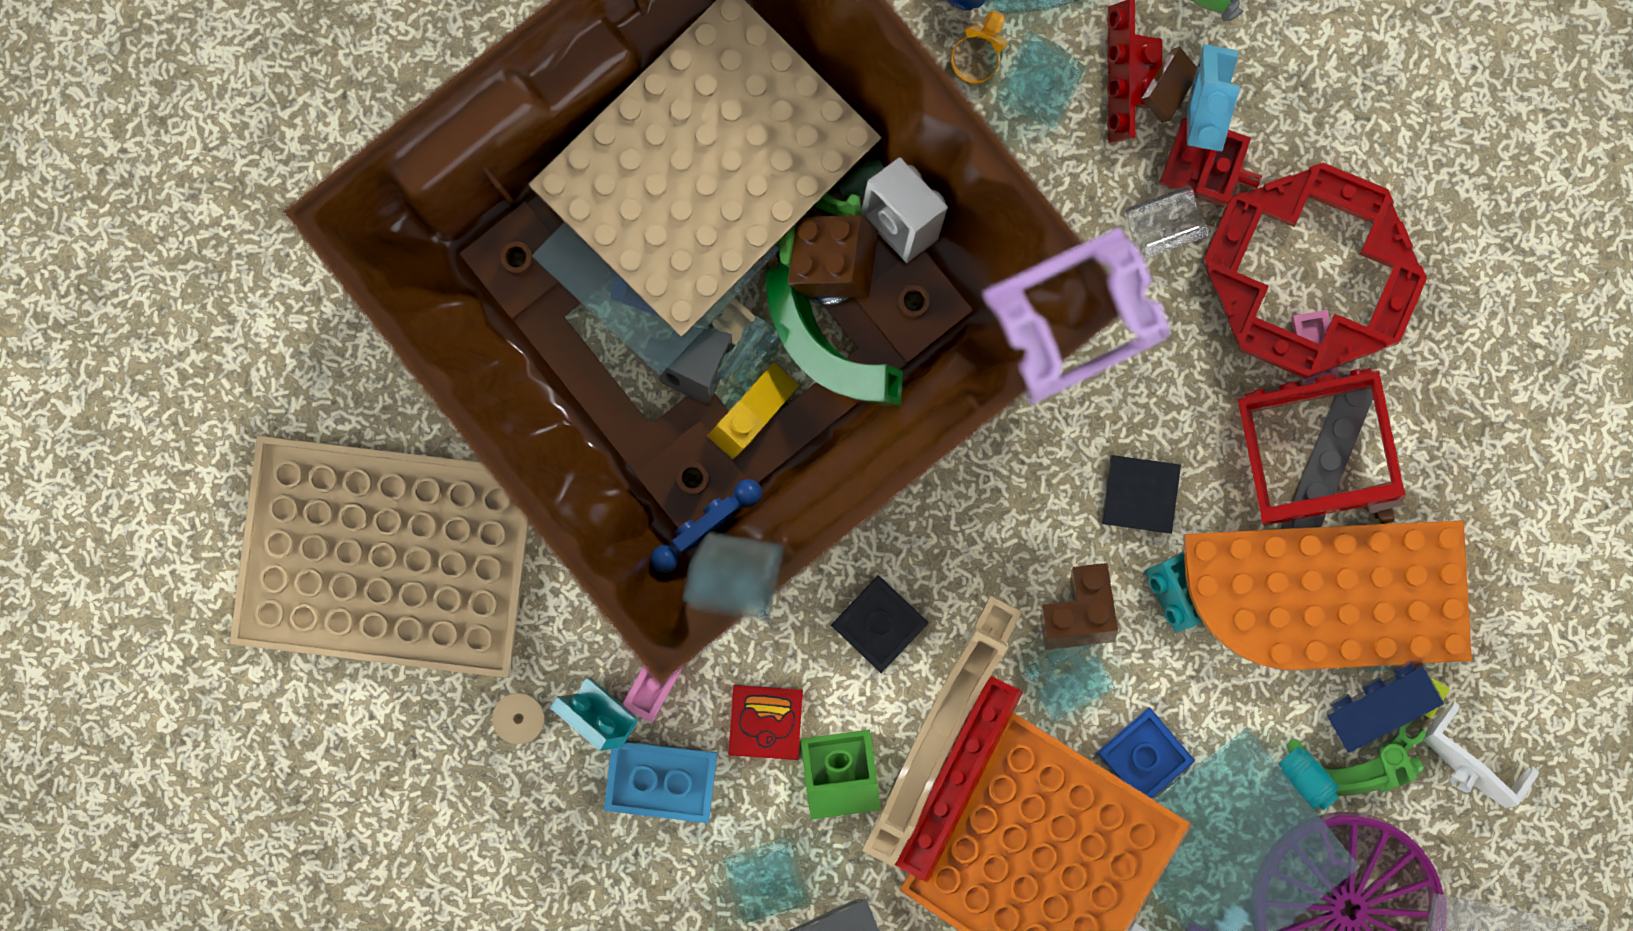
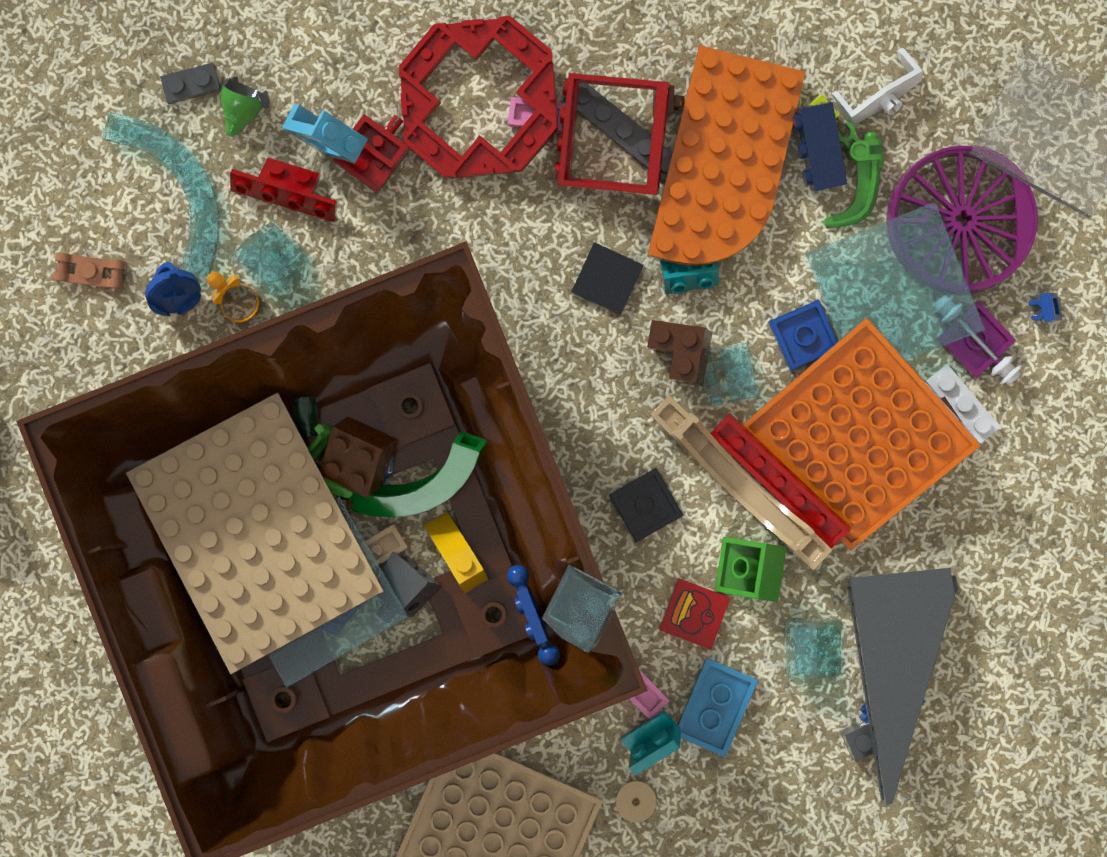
camera: 75 degrees left, 0 degrees up
(750, 354) = (413, 542): clear light blue plate -> none
(904, 209) = (338, 392): white brick -> none
(1028, 330) = (462, 326): lavender piece -> none
(1166, 222) = (408, 197): clear panel -> none
(1170, 84) = (304, 162): reddish brown tile -> none
(1309, 778) = (857, 218): teal head -> none

